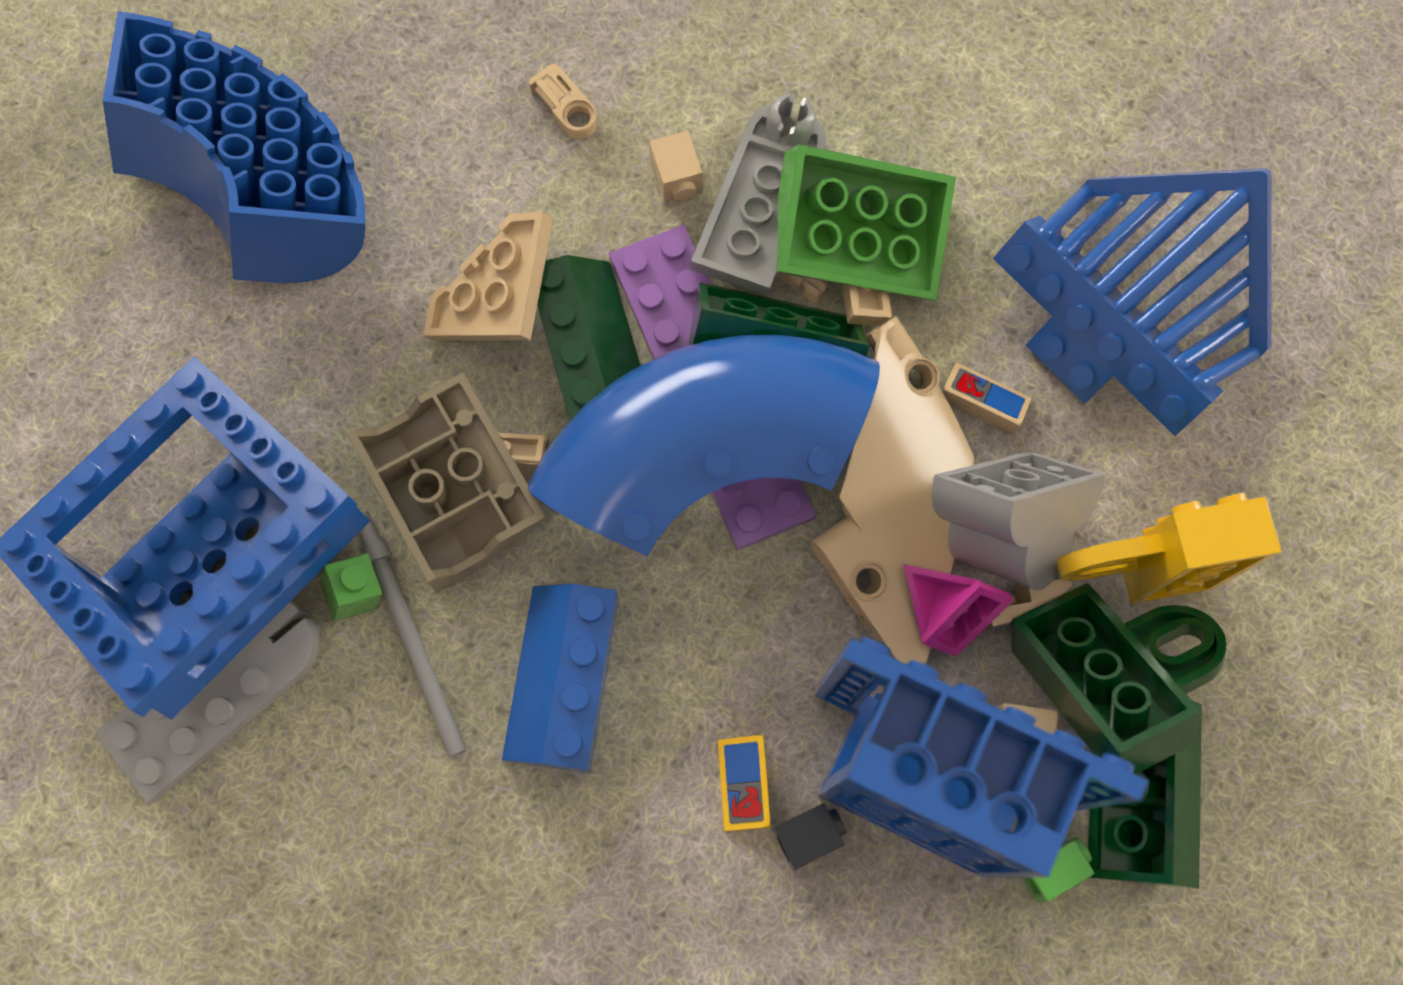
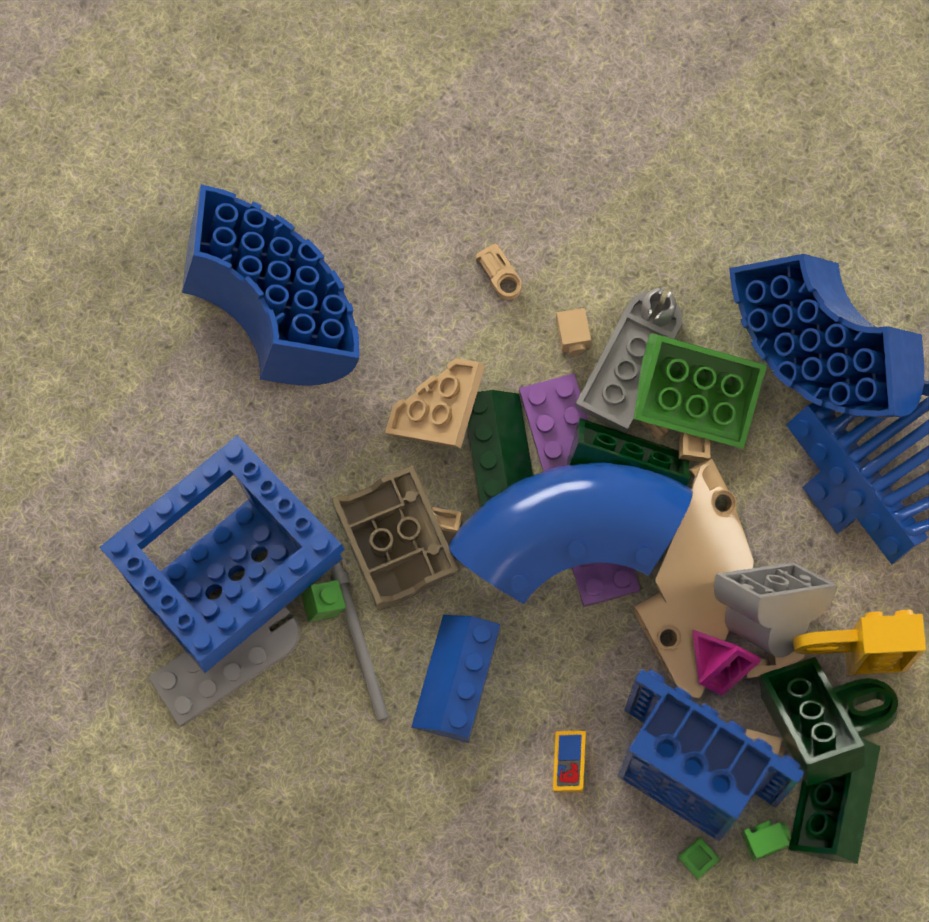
camera: 10 degrees right, 0 degrees up
(810, 835) = (608, 799): black brick -> none
(956, 908) = (698, 858): none -> bright green tile
(986, 398) = (768, 521): slope -> none
(1031, 143) = (822, 343): none -> blue brick

